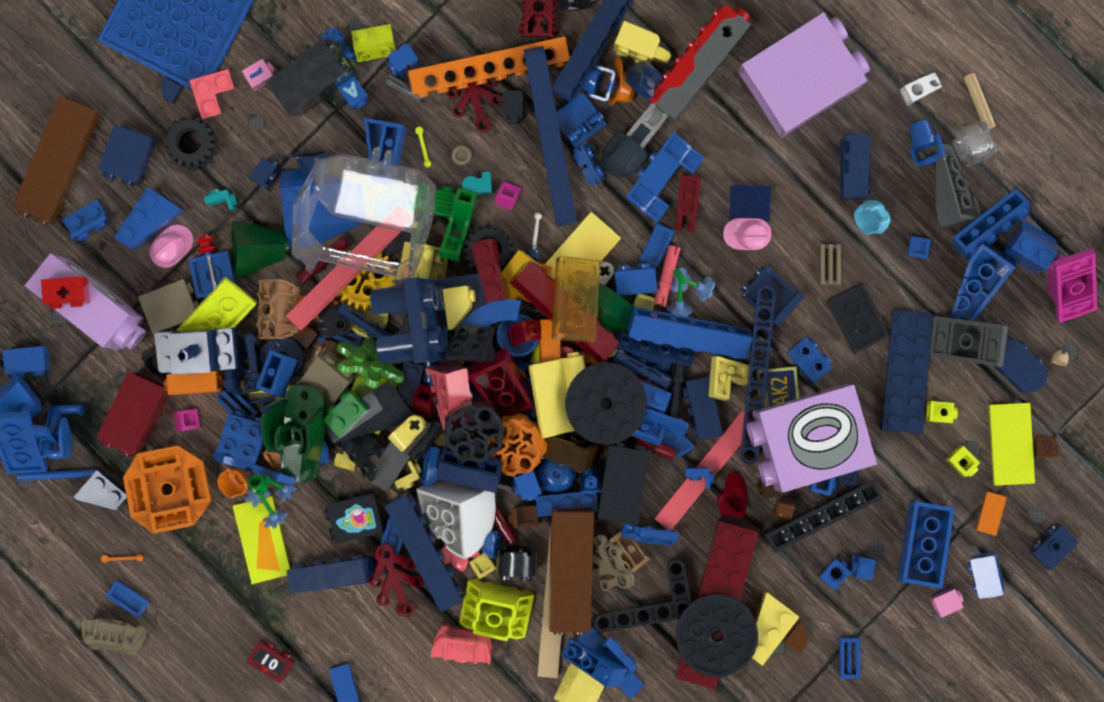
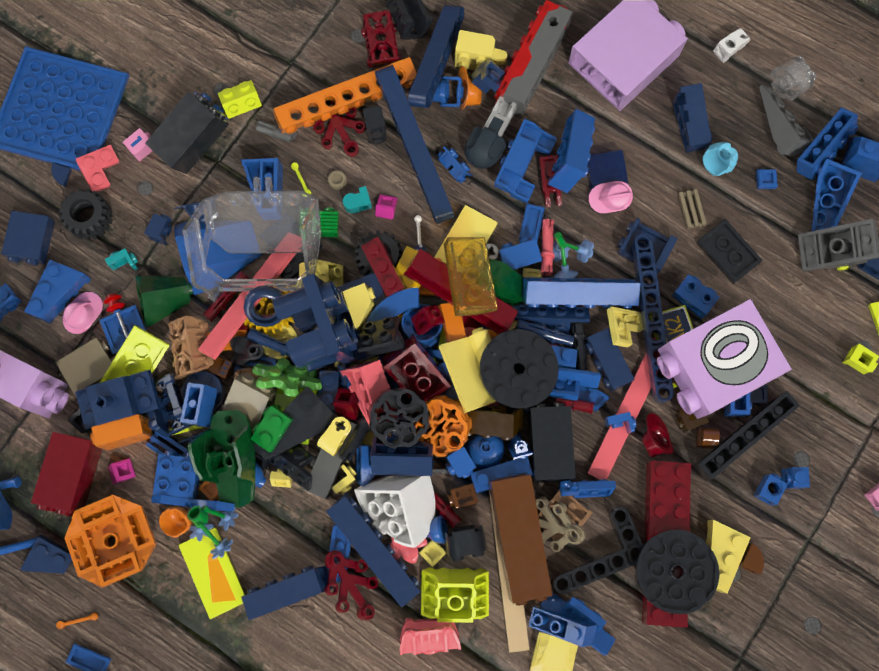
camera: 15 degrees left, 10 degrees down
(354, 94) = (229, 144): blue brick -> none
(354, 273) = (255, 317): none -> dark blue wheel
(354, 518) = (299, 532): black panel -> none
(402, 61) = (265, 103): blue brick -> none
(458, 224) = (346, 237): green arch -> none
(579, 120) = (438, 128): blue hinge -> none
(718, 178) = (573, 151): none -> blue wedge
(849, 675) = (798, 571): blue tile -> none
(906, 372) = (786, 290): dark blue plate -> none
(924, 138) = (746, 85): blue piece -> none
(925, 544) = (849, 443): blue brick -> none
(933, 412) = (823, 322): neon yellow brick -> none
(979, 99) = (782, 41): tan axle -> none

